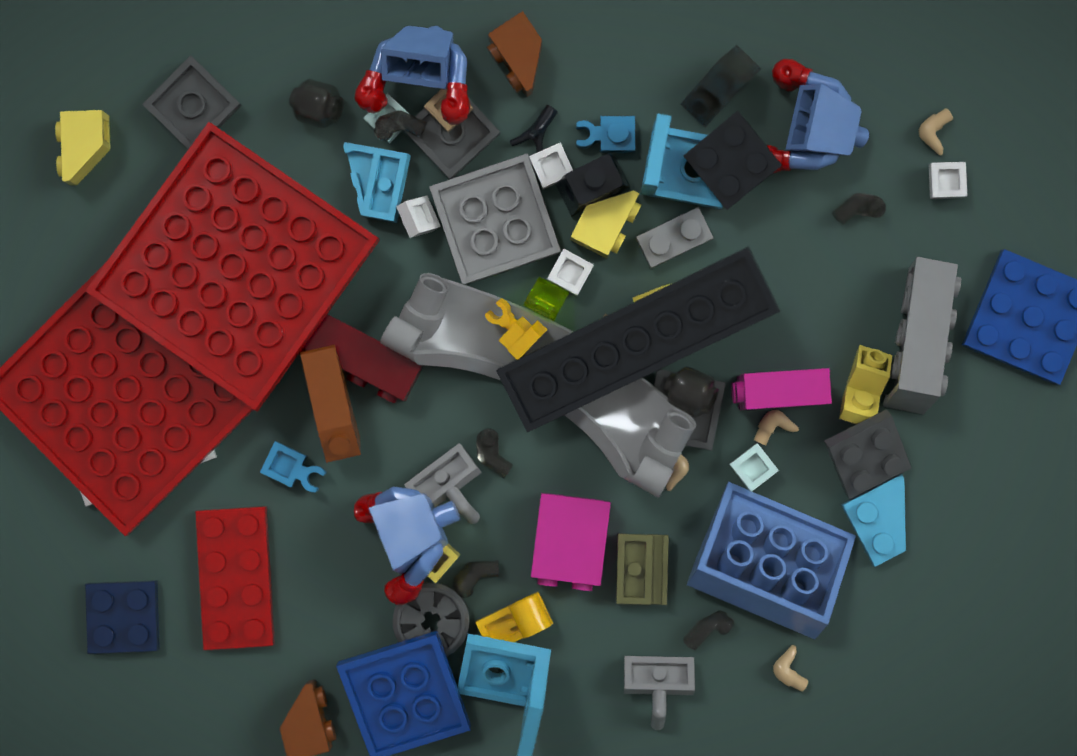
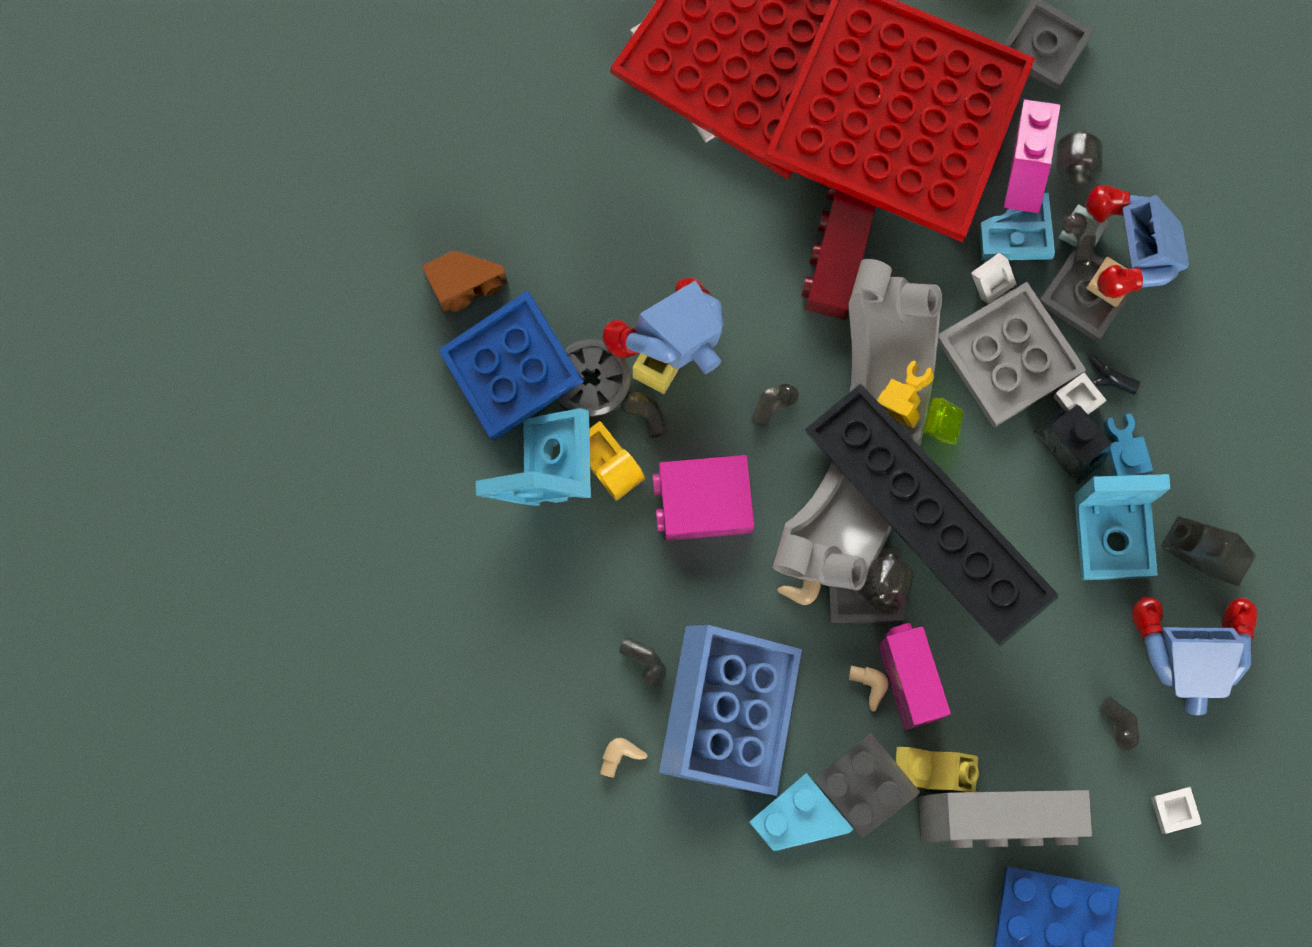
camera: 75 degrees right, 10 degrees down
(122, 617) = (529, 86): dark blue plate -> none
(235, 578) = (591, 183): red plate -> none
(288, 465) = (714, 208): dark azure plate -> none
(311, 153) = (1032, 156): none -> dark pink brick
(331, 403) = (787, 230): dark orange slope -> none
(445, 478) = (740, 363): light grey plate -> none
(519, 49) = (1189, 340): dark orange slope -> none
(570, 272) = (976, 440): white plate -> none
(603, 221) = (1037, 462): light yellow slope -> none
(642, 569) = (691, 578): olive plate -> none
(660, 678) = (582, 617): light grey plate -> none
(674, 237) = (1039, 539): light grey plate -> none
(732, 160) = (1137, 574): black plate -> none
(753, 467) = (823, 670): light aqua plate -> none
(930, 126) = (1227, 781): tan animal -> none

